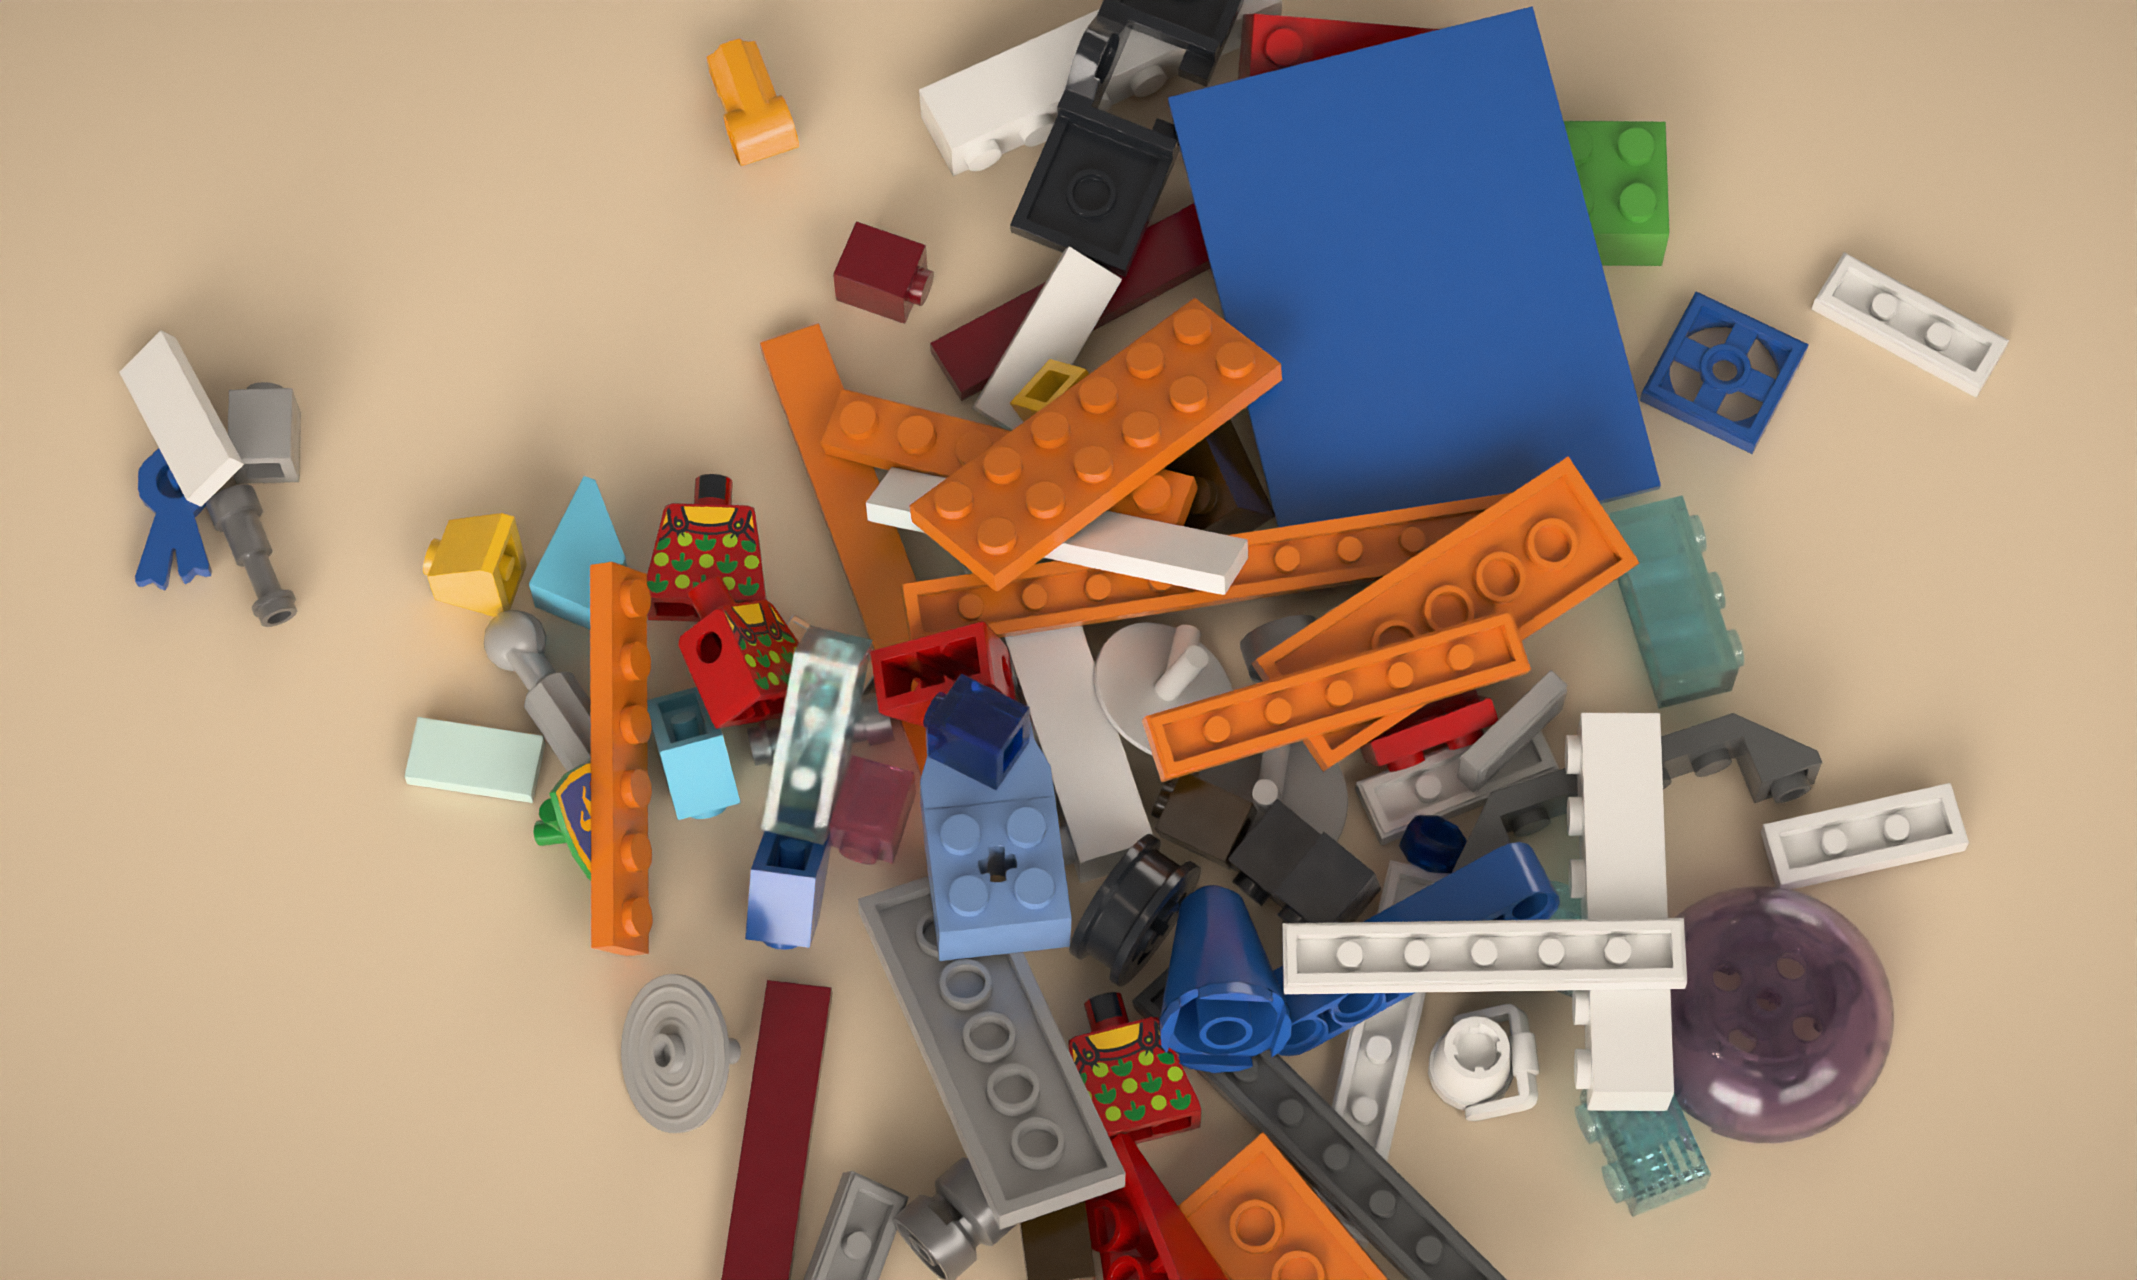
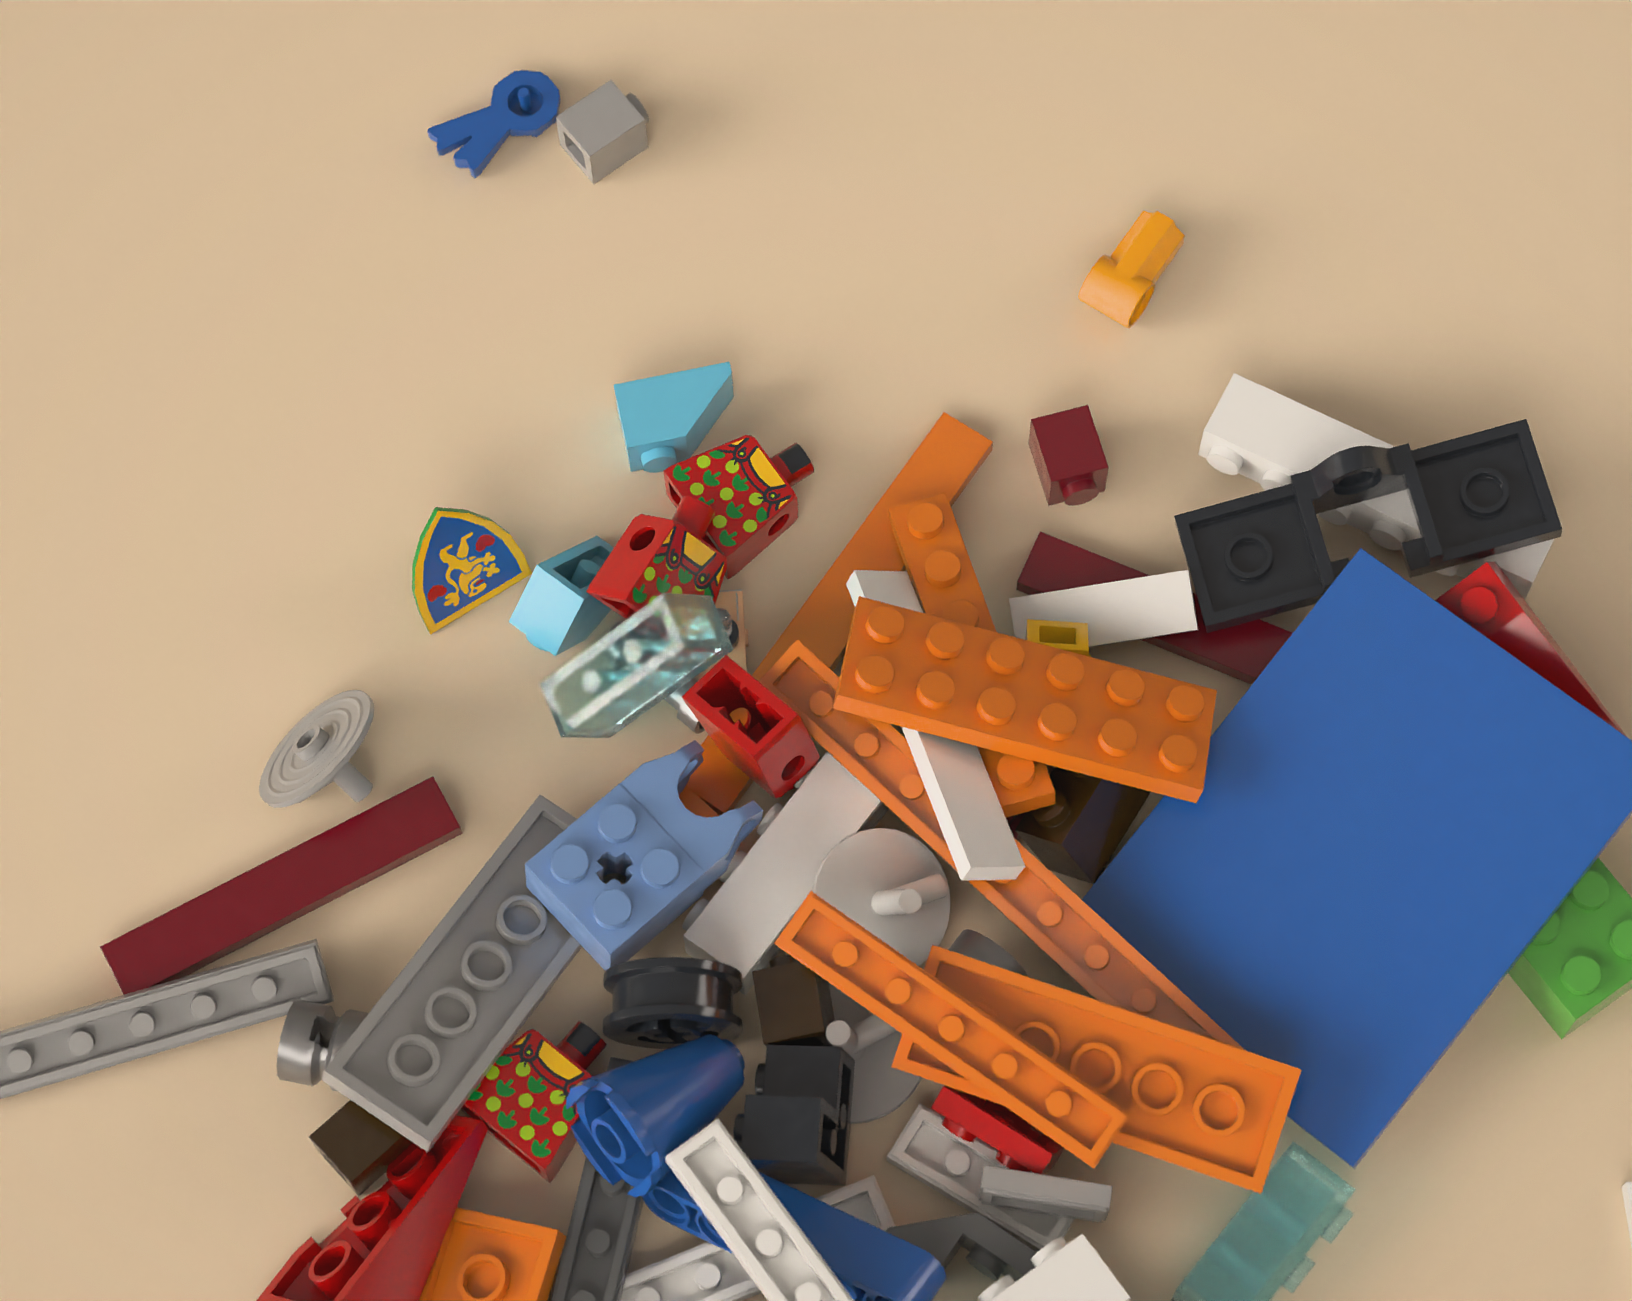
camera: 55 degrees right, 0 degrees up
(181, 418) = (568, 67): white tile -> none
(237, 515) = (528, 159): flat silver piece -> none
(475, 759) = (461, 451): light aqua tile -> none
(477, 563) = (607, 343): yellow slope -> none
(553, 700) = (546, 470): light grey piece -> none
(619, 760) = (520, 542): orange plate -> none
(786, 890) = (511, 739): slope -> none
(872, 811) = (616, 749): clear pink brick -> none
(977, 731) = (706, 774): clear blue brick -> none
(1432, 843) = (908, 1196): clear blue tile -> none
(1702, 412) = (1539, 1098): blue piece -> none

